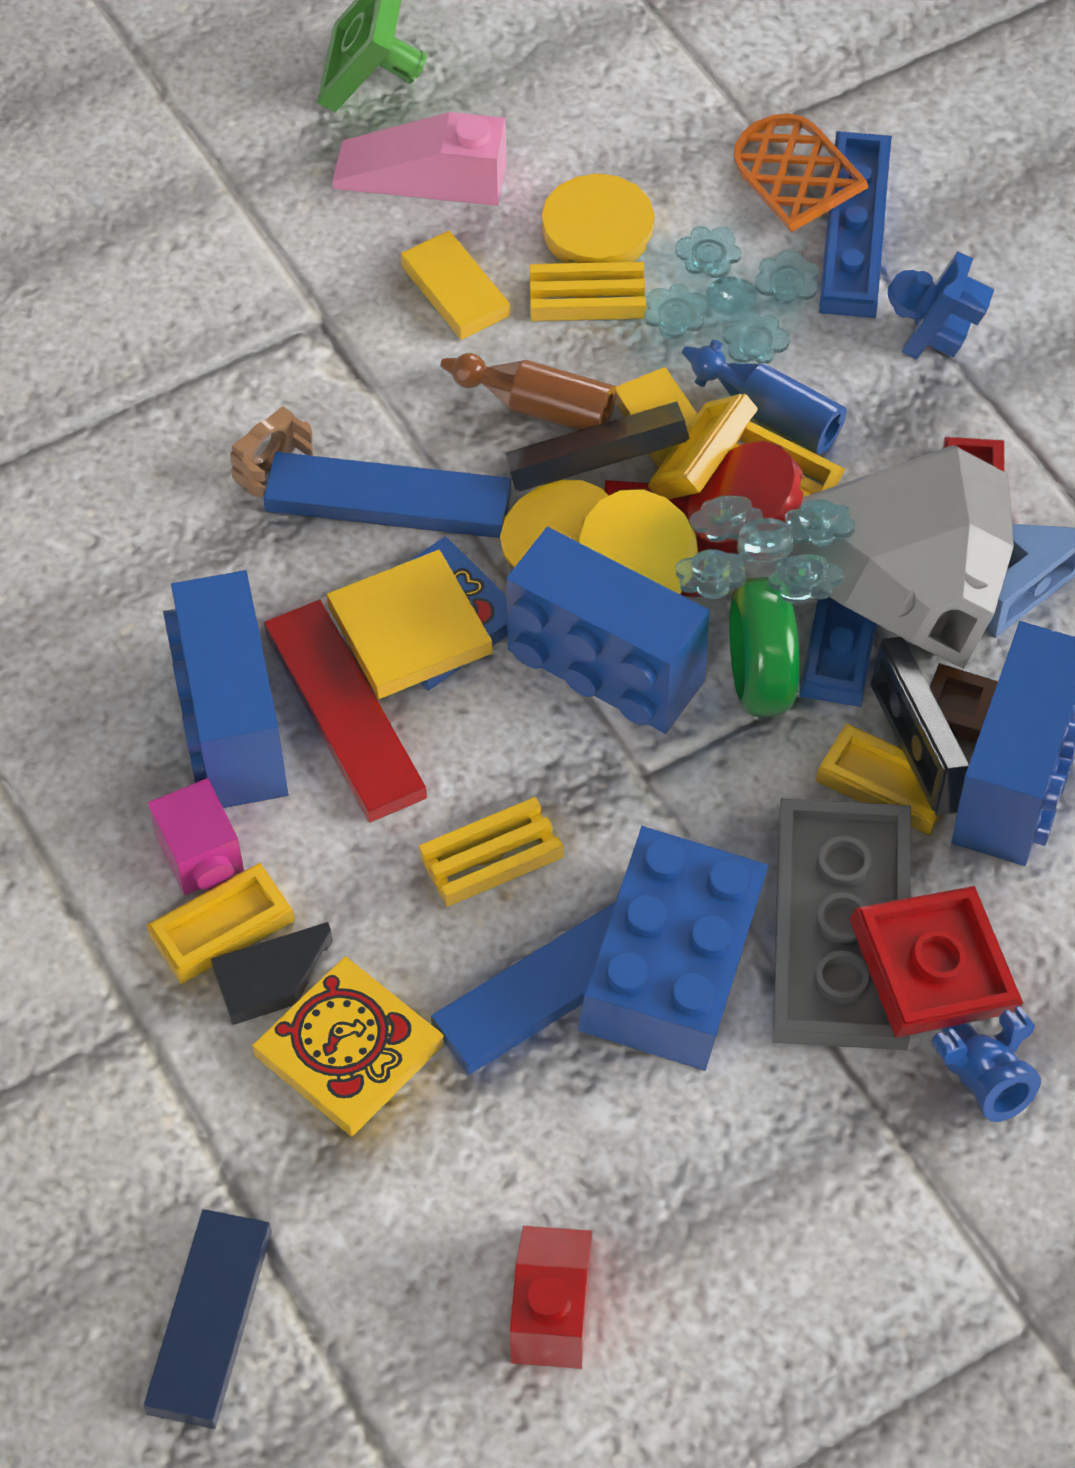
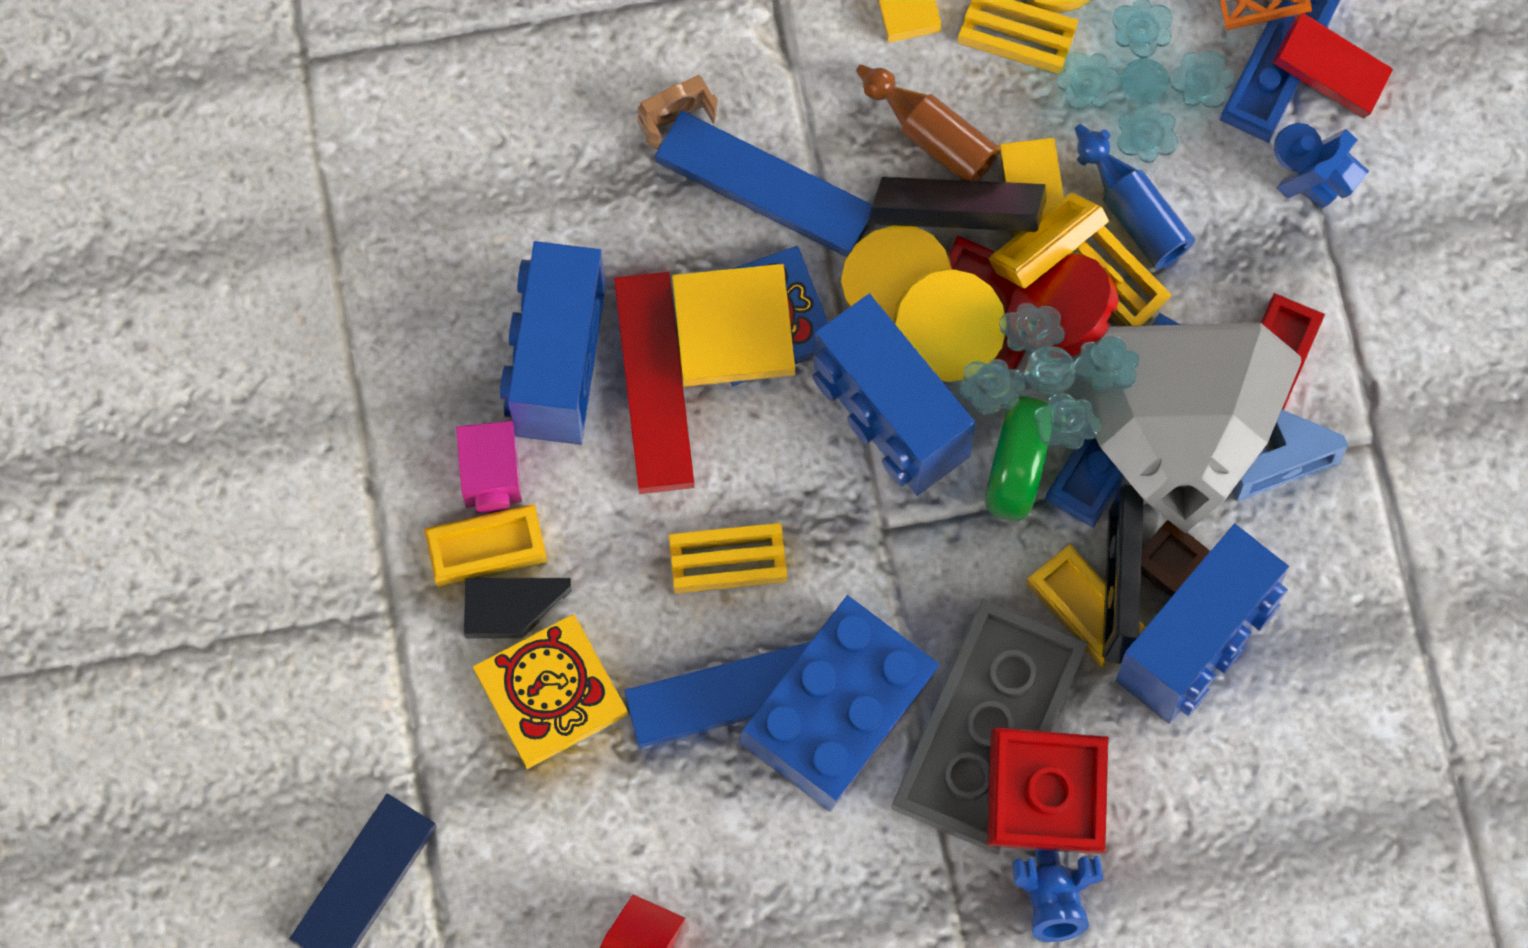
camera: 20 degrees right, 15 degrees up
(907, 227) = (1332, 65): none -> red tile

